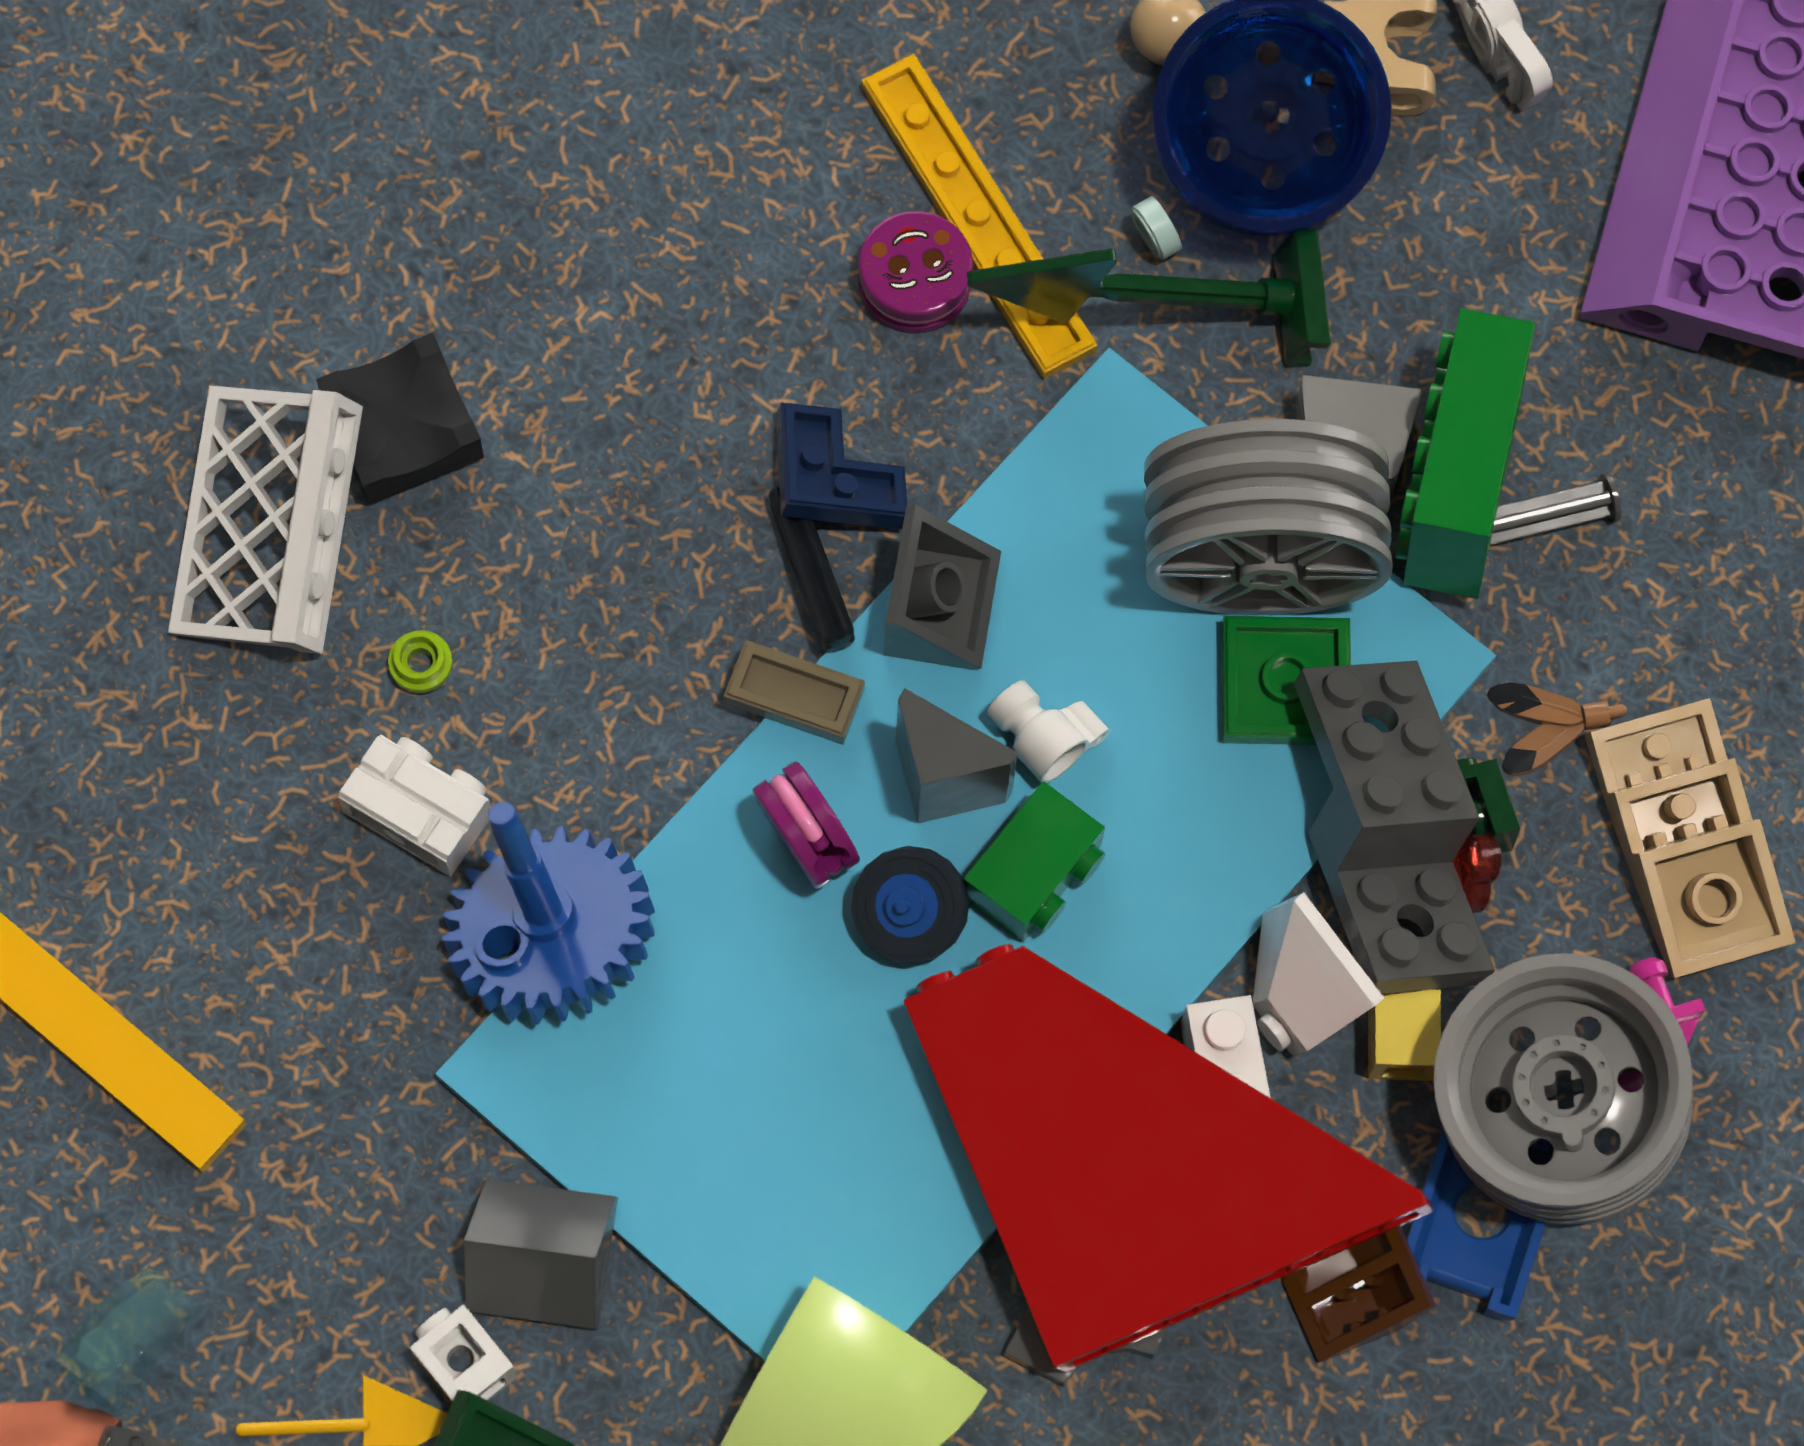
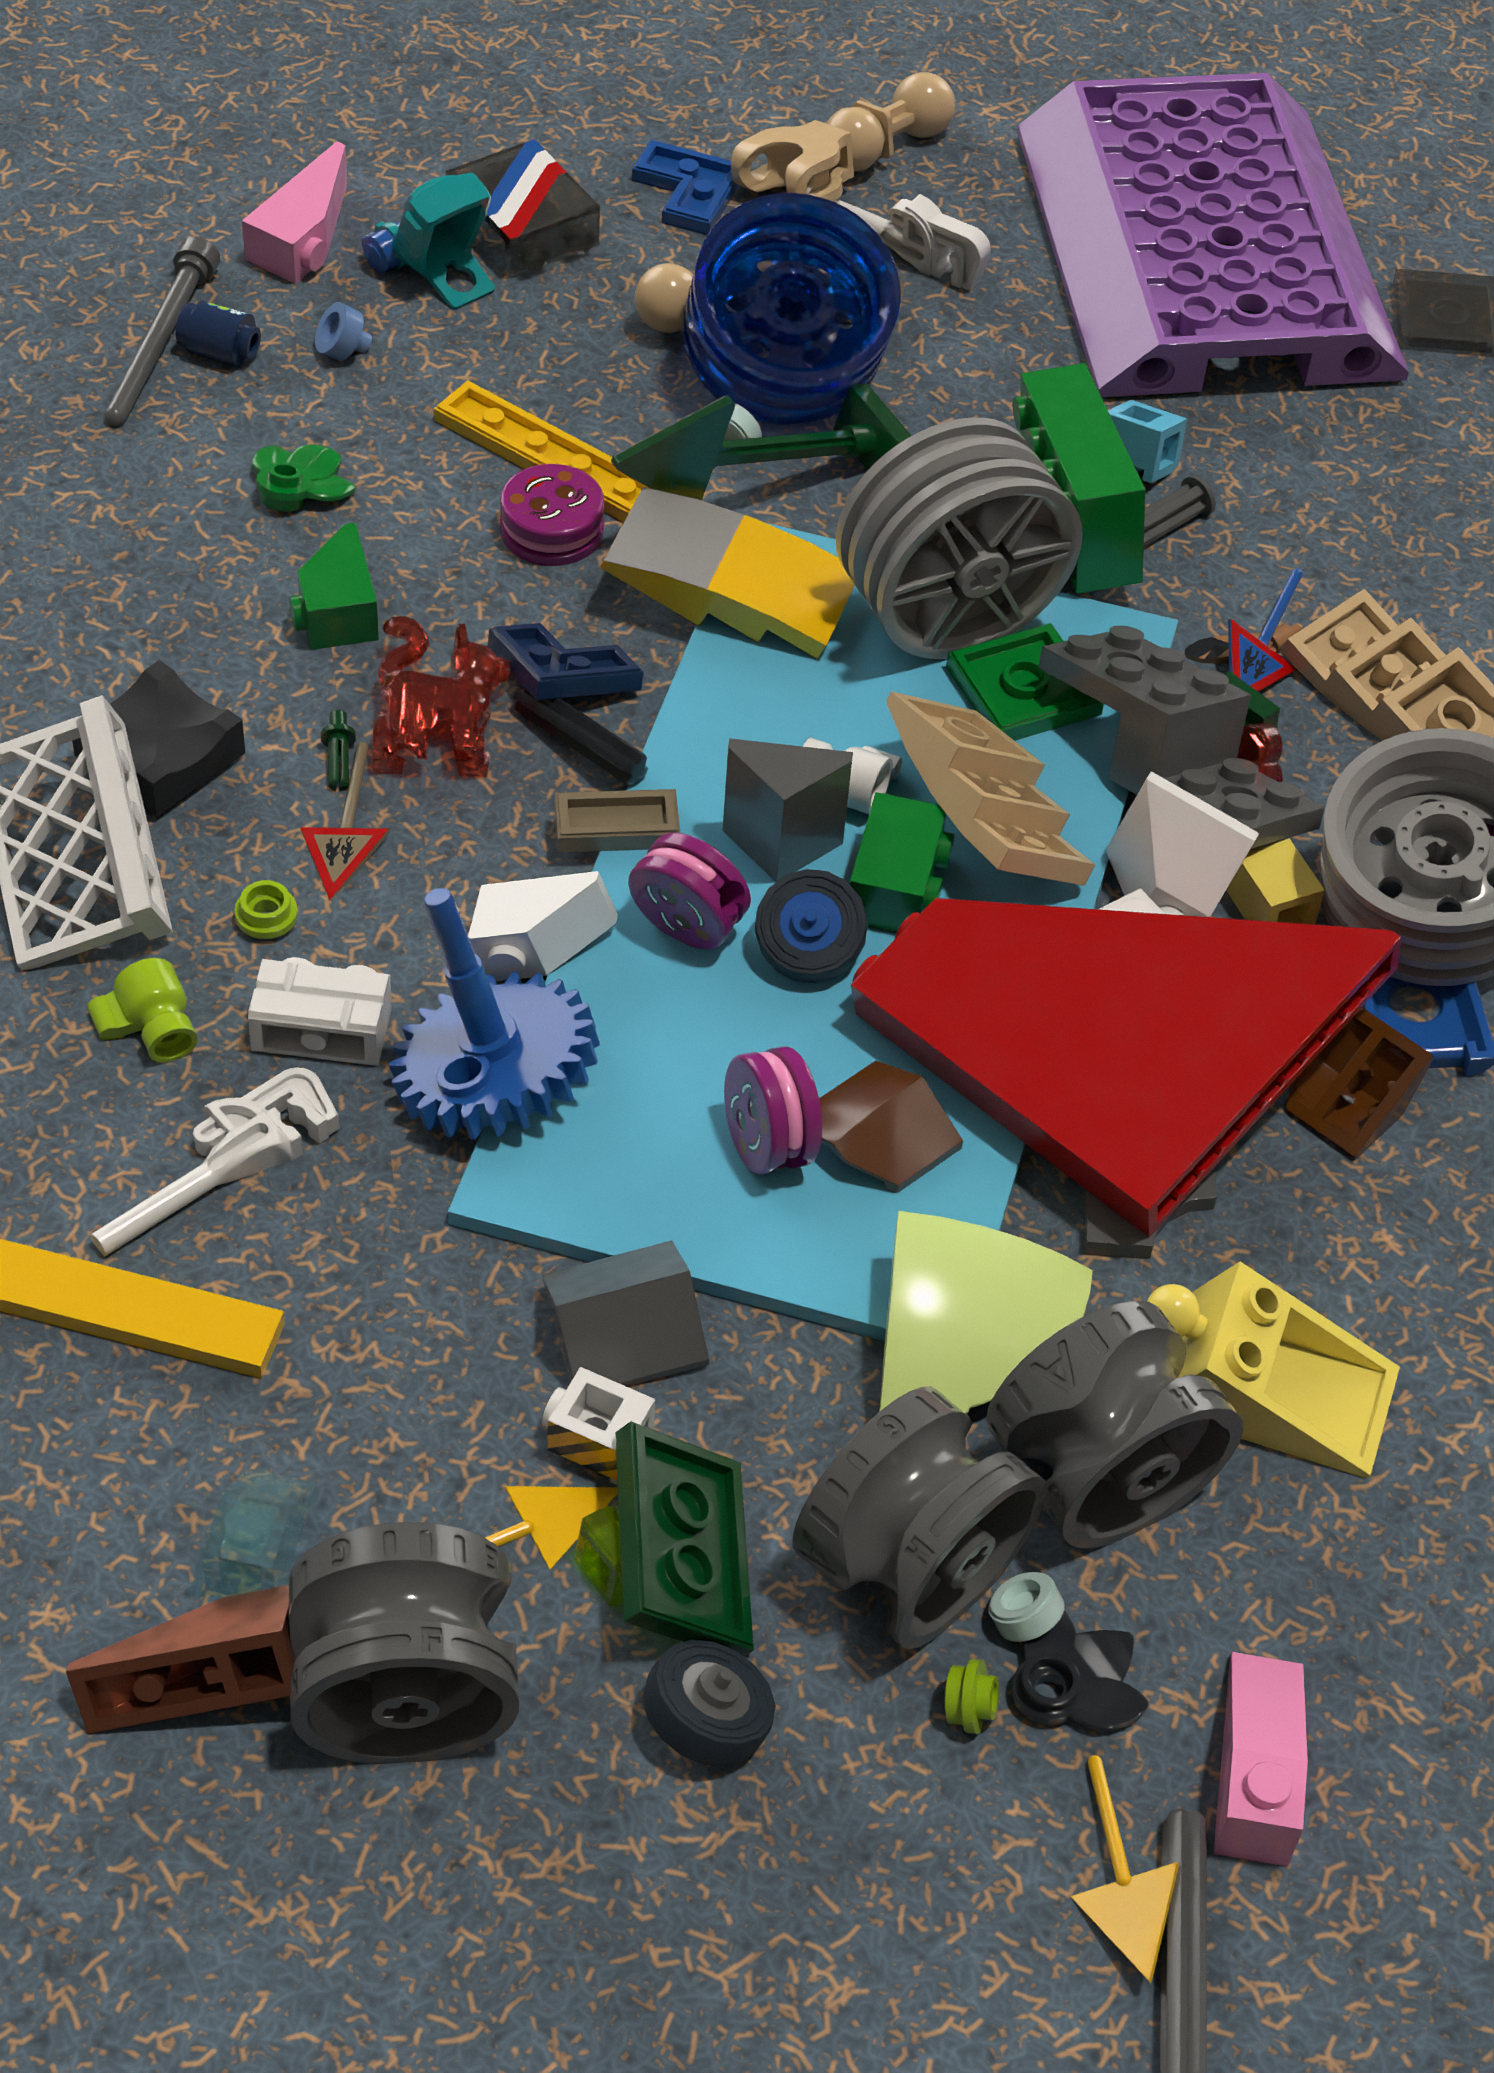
camera: 25 degrees left, 20 degrees down
(269, 730) = (150, 1001): none -> lime piece
(288, 915) = (239, 1140): none -> white piece
(527, 609) = (345, 849): none -> piece
(577, 477) = (338, 739): none -> dark green piece
(650, 297) = (336, 594): none -> green slope
(652, 792) = (538, 922): none -> white slope
(683, 481) = (433, 707): none -> clear red animal
(693, 114) = (291, 477): none -> green plate
(762, 1108) = (773, 1110): none -> magenta head
(870, 1151) = (888, 1125): none -> reddish brown slope
(940, 593) = (696, 704): dark grey slope -> none
(1044, 426) = (729, 566): none -> yellow slope
(1160, 815) = (988, 789): none -> tan slope
(1545, 737) = (1251, 656): none -> piece
(1585, 403) = (1150, 437): none -> medium azure brick

